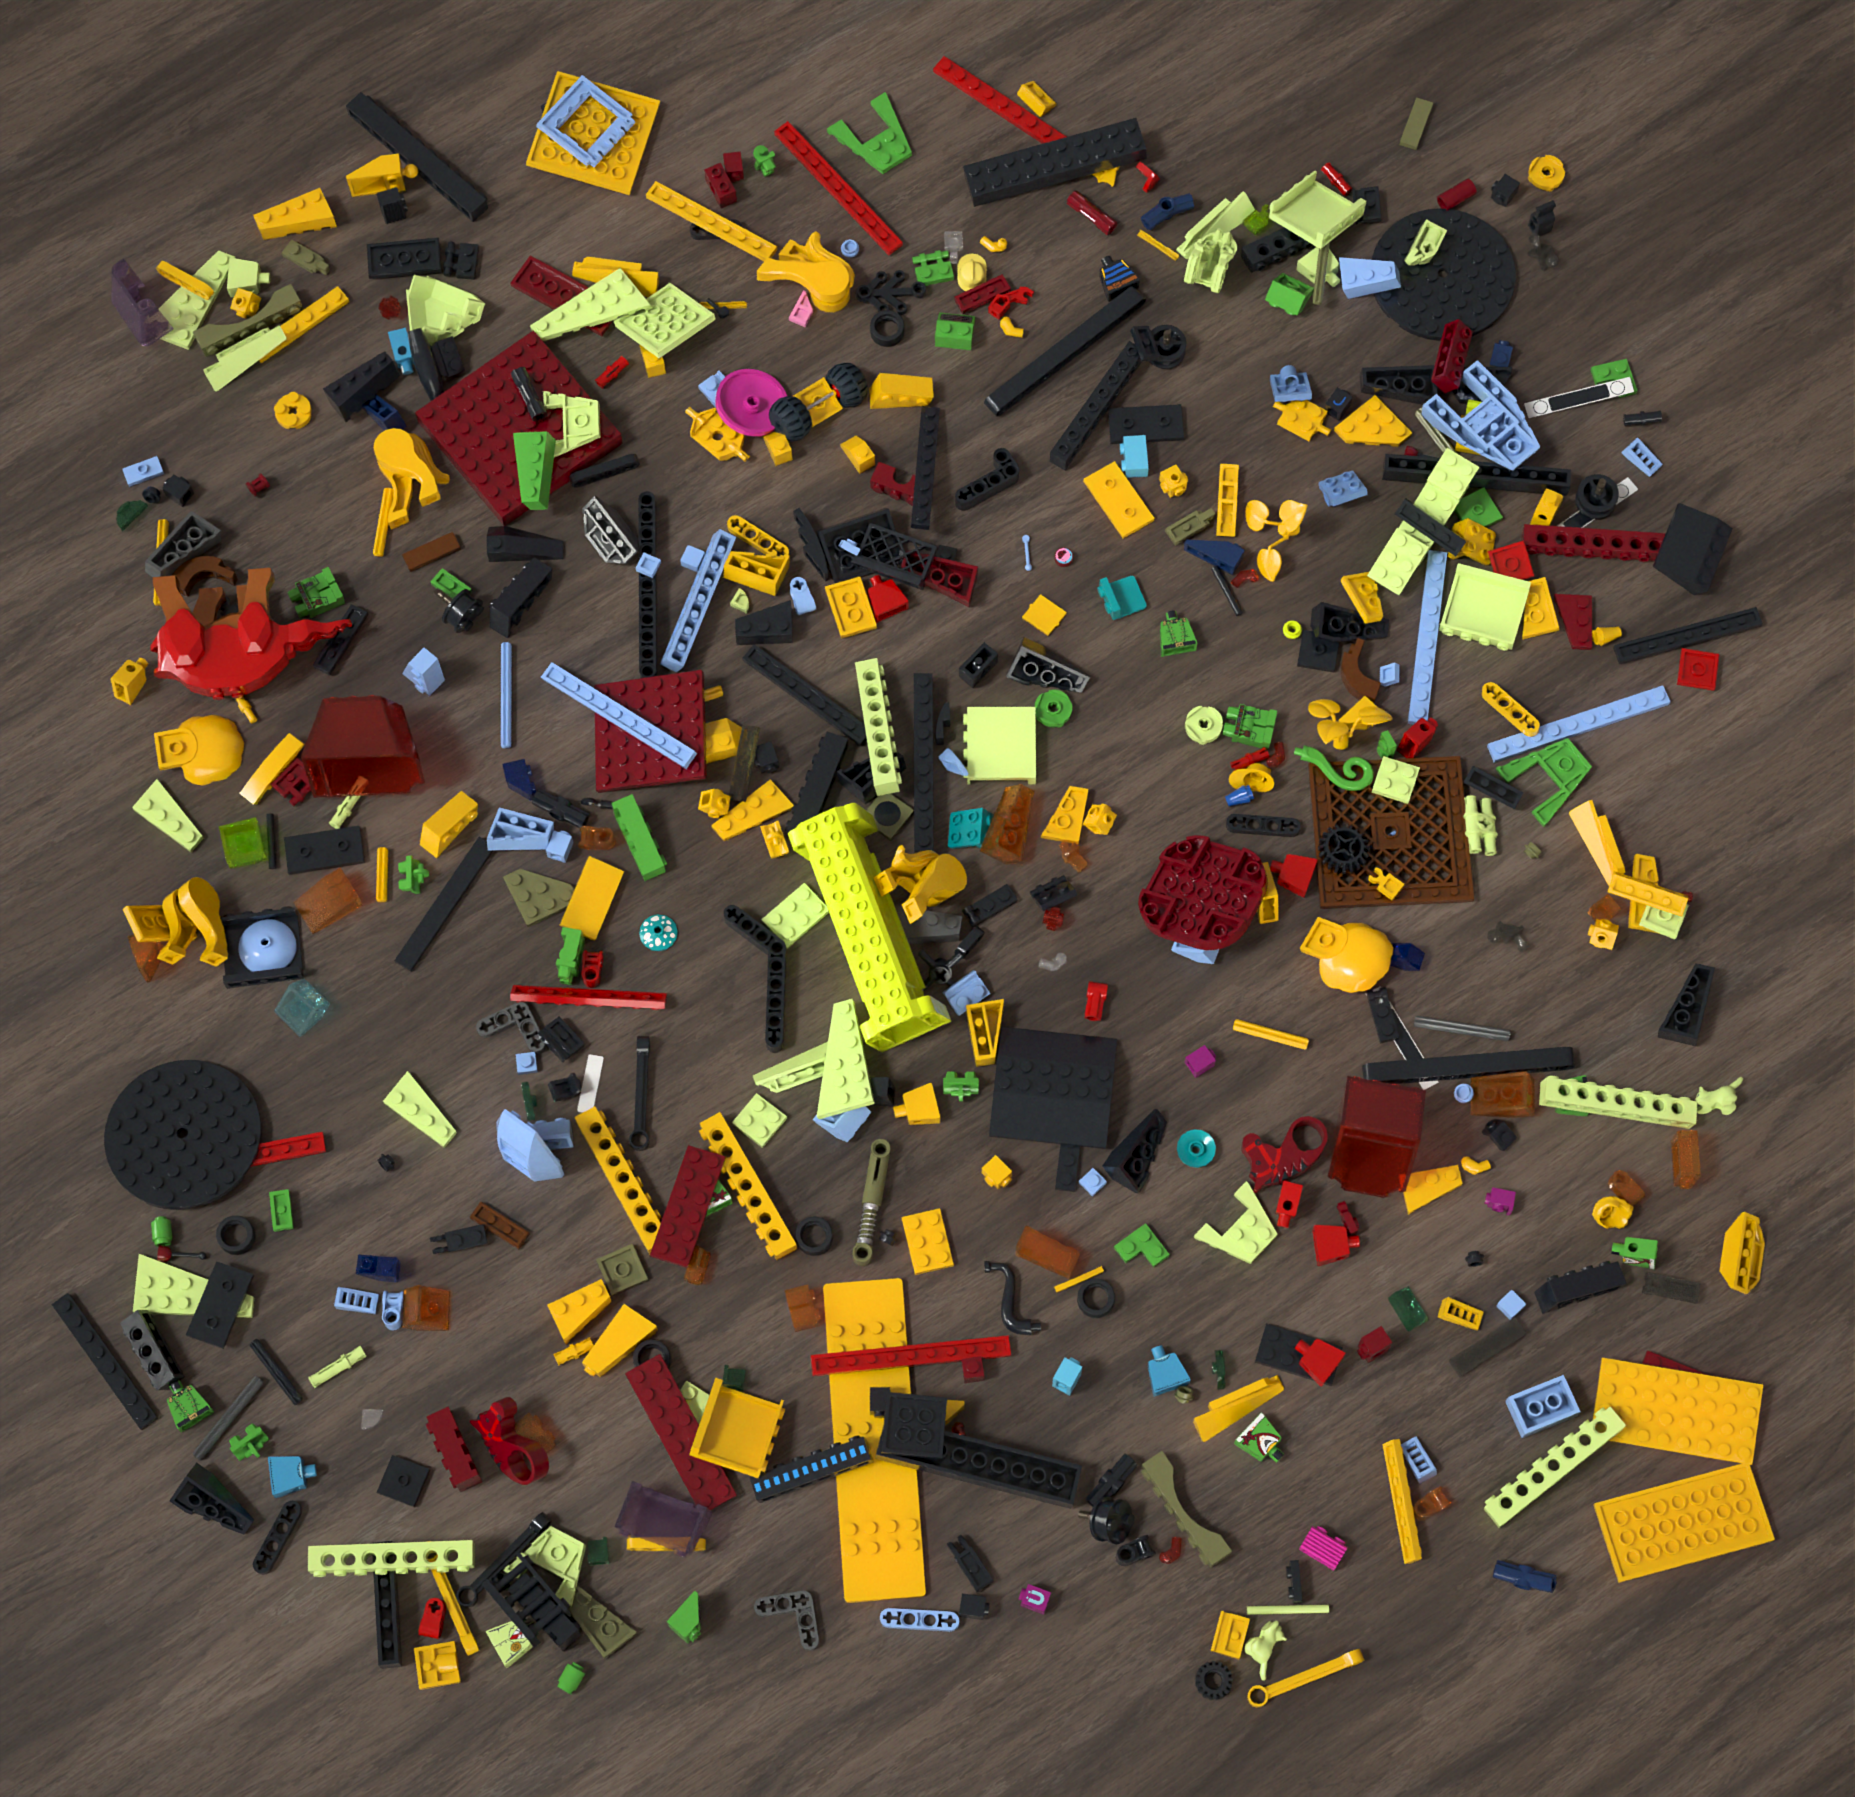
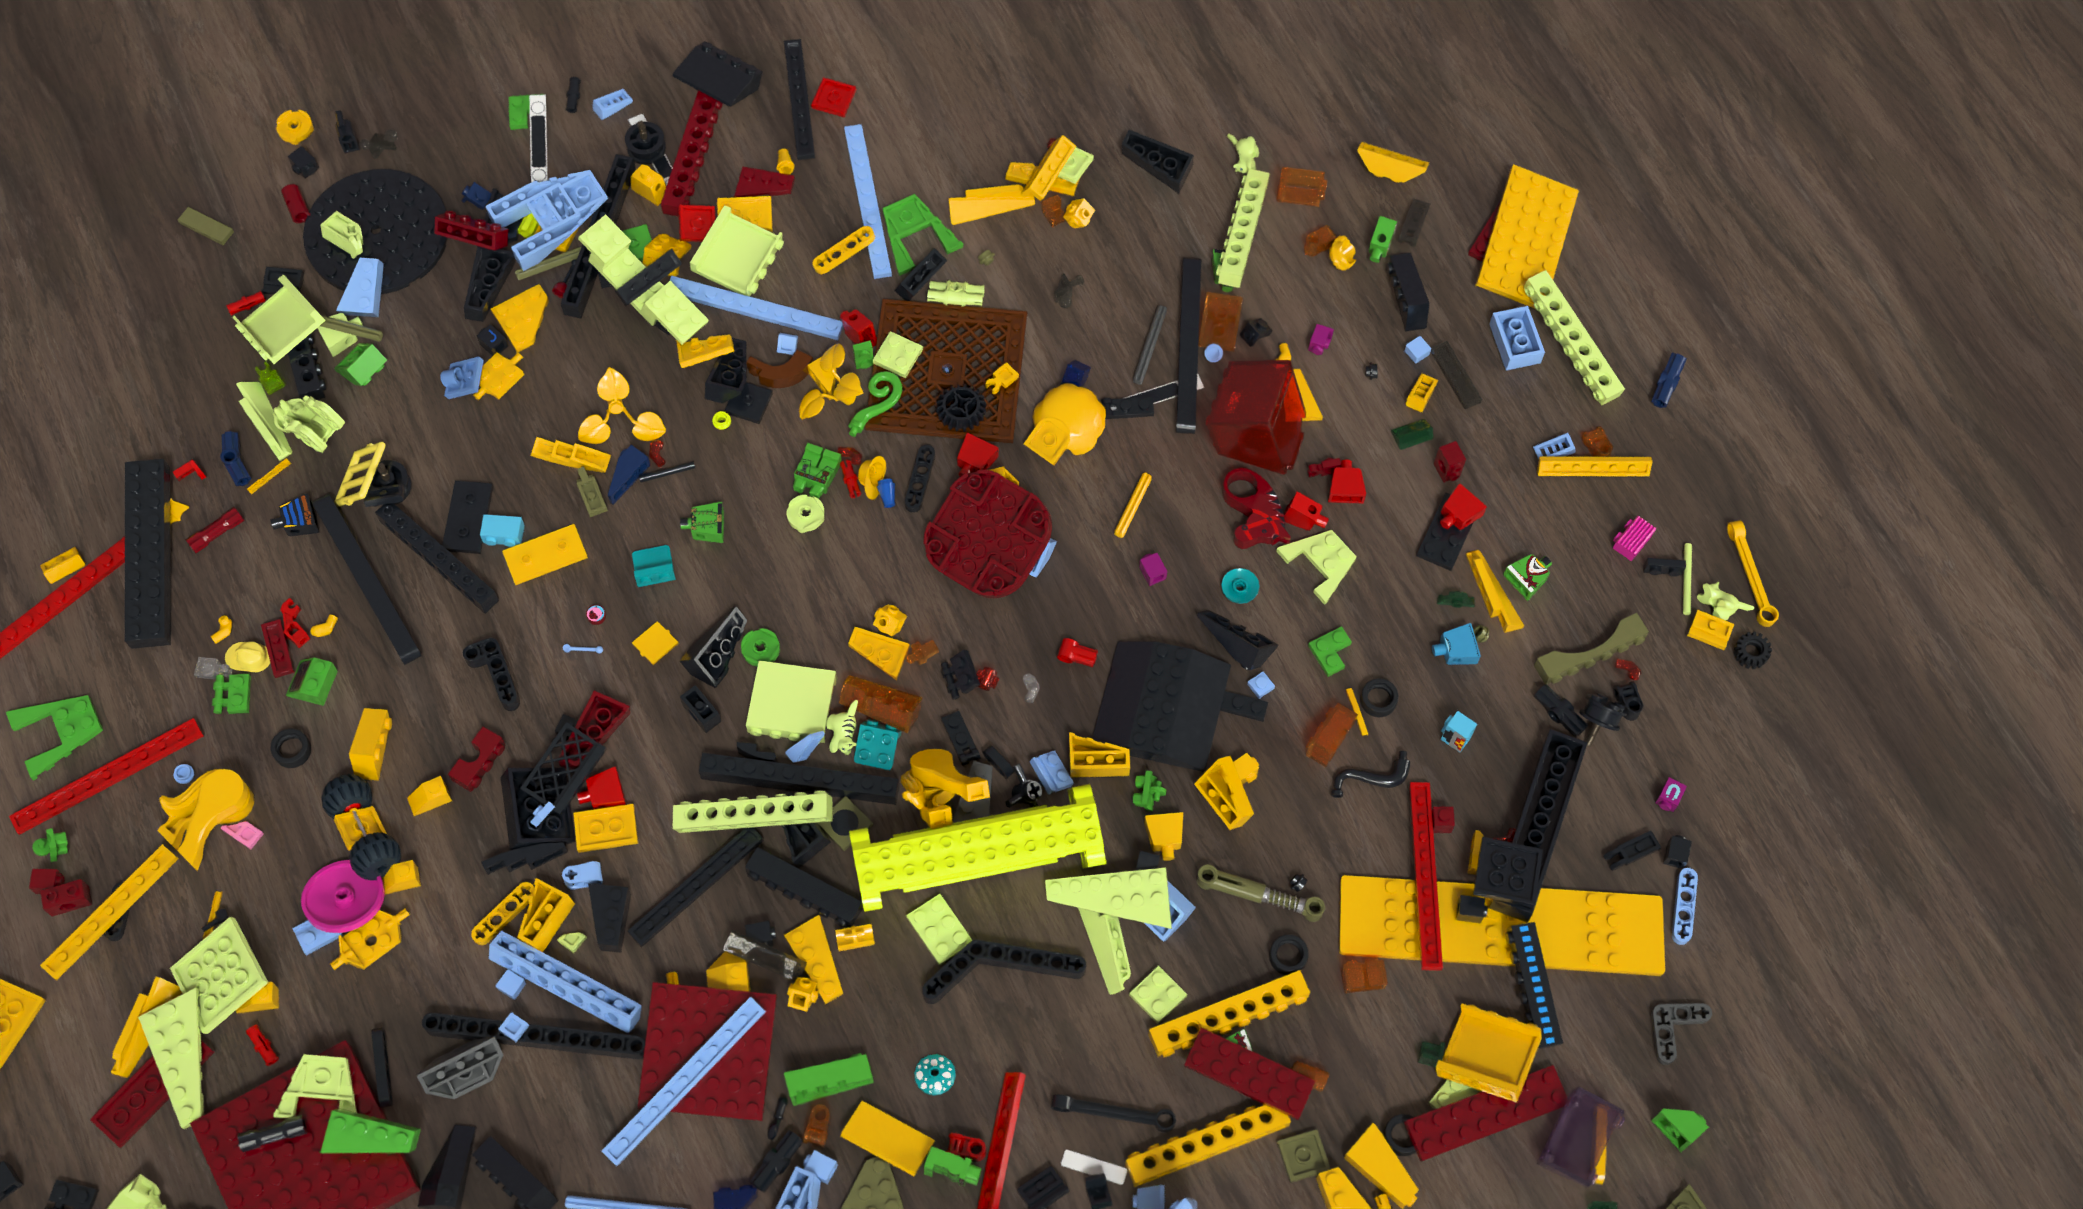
camera: 85 degrees left, 5 degrees down
(887, 291) = (248, 742): black plant -> none
(925, 468) = (467, 728): black plate -> none
(927, 1241) = (1305, 846): yellow plate -> none
(965, 1156) = (1225, 793): none -> yellow wedge
(979, 795) = (843, 727): none -> yellowish green animal
(1173, 481) = (540, 498): yellow brick -> none
(1174, 325) = (354, 467): none -> light yellow bar
(1342, 488) = (585, 351): medium blue plate -> none
(1683, 1522) = (1625, 252): yellow plate -> none

